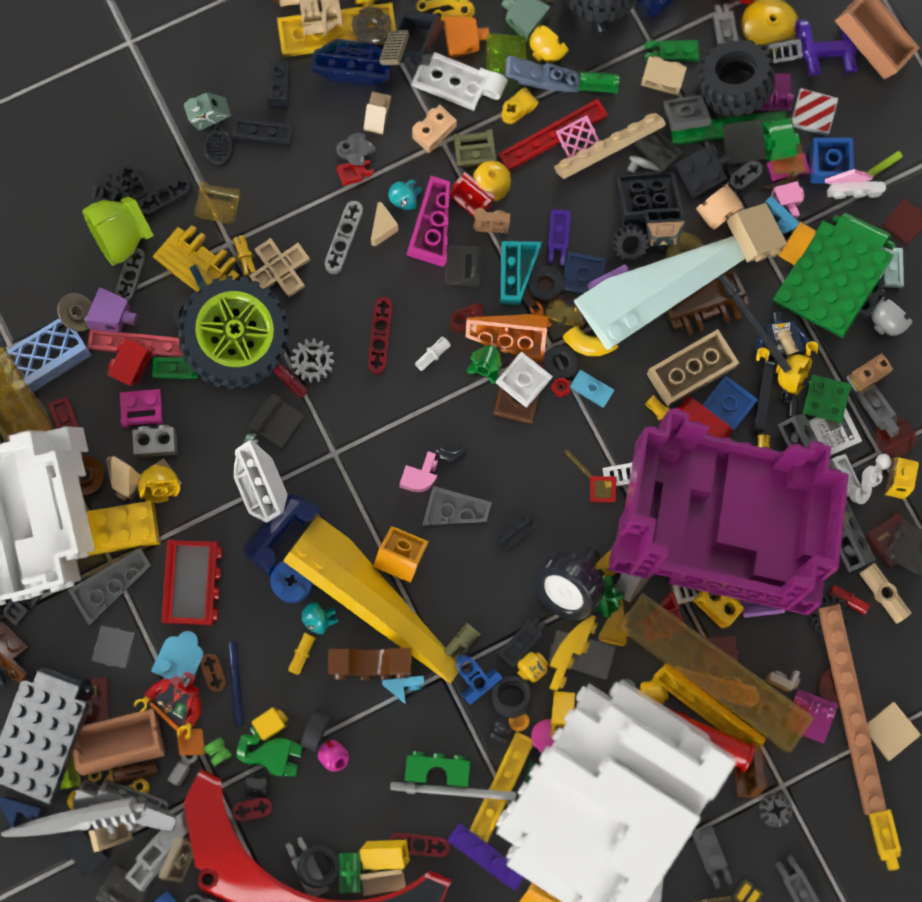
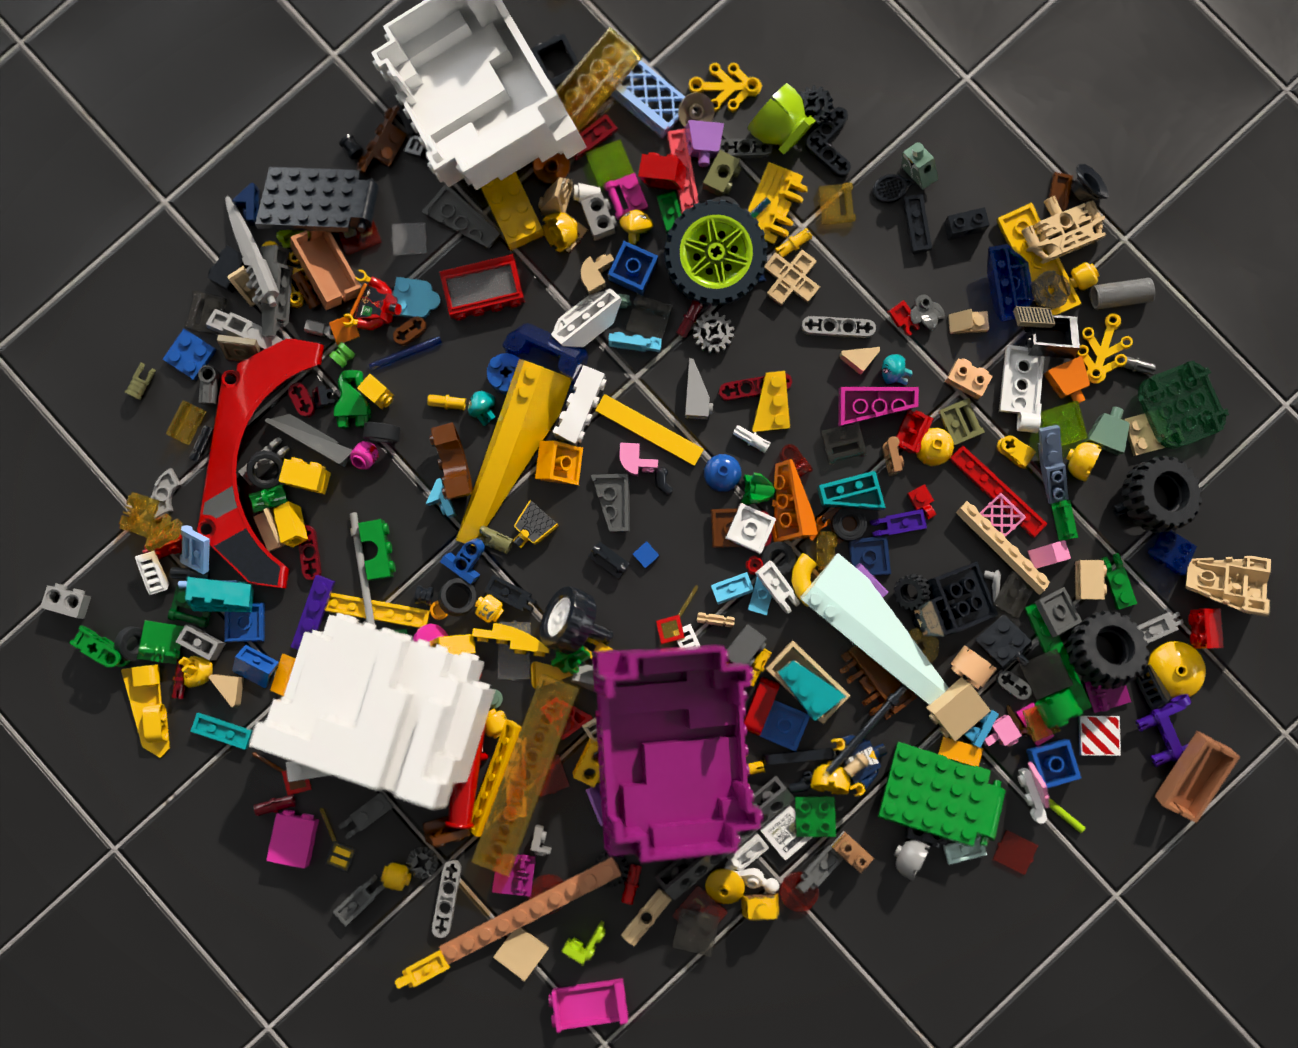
camera: 85 degrees right, 5 degrees up
(59, 274) = (728, 86): none -> yellow plant
(101, 415) = (609, 162): none -> clear neon green plate
(124, 448) = (583, 191): none -> white cone
(155, 316) = (723, 163): none -> olive brick
(174, 405) = (635, 223): none -> yellow piece
(213, 466) = (591, 272): none -> tan brick
(221, 420) = (633, 268): none -> blue brick
(297, 808) = (312, 438): none -> dark grey wedge
(298, 442) = (634, 342): none -> medium azure hinge
(338, 824) = (304, 476): none -> yellow piece
(348, 516) = (580, 406): none -> white wedge
(373, 395) = (697, 396): none -> light grey slope
(392, 453) = (649, 430): none -> yellow tile
(403, 321) = (773, 403): none -> yellow wing
(458, 392) = (722, 473): none -> blue cylinder
(458, 597) = (533, 525): none -> torso
(520, 492) = (646, 554): none -> blue tile
(540, 208) = (921, 499): none -> red plate
(578, 415) = (732, 588): none -> medium azure plate
(589, 370) = (777, 586): none -> white hinge
(605, 441) = (713, 619): none -> tan axle
(628, 105) = (1049, 554): none -> bright pink slope
(640, 414) = (746, 645): none -> dark grey brick
(704, 364) = (810, 690): none -> teal wedge
(784, 840) = (395, 876): none -> yellow head
(818, 793) = (446, 898): none -> light grey beam
(867, 506) = (727, 880): none -> yellow dish
(907, 660) = (576, 950): none -> lime bracket

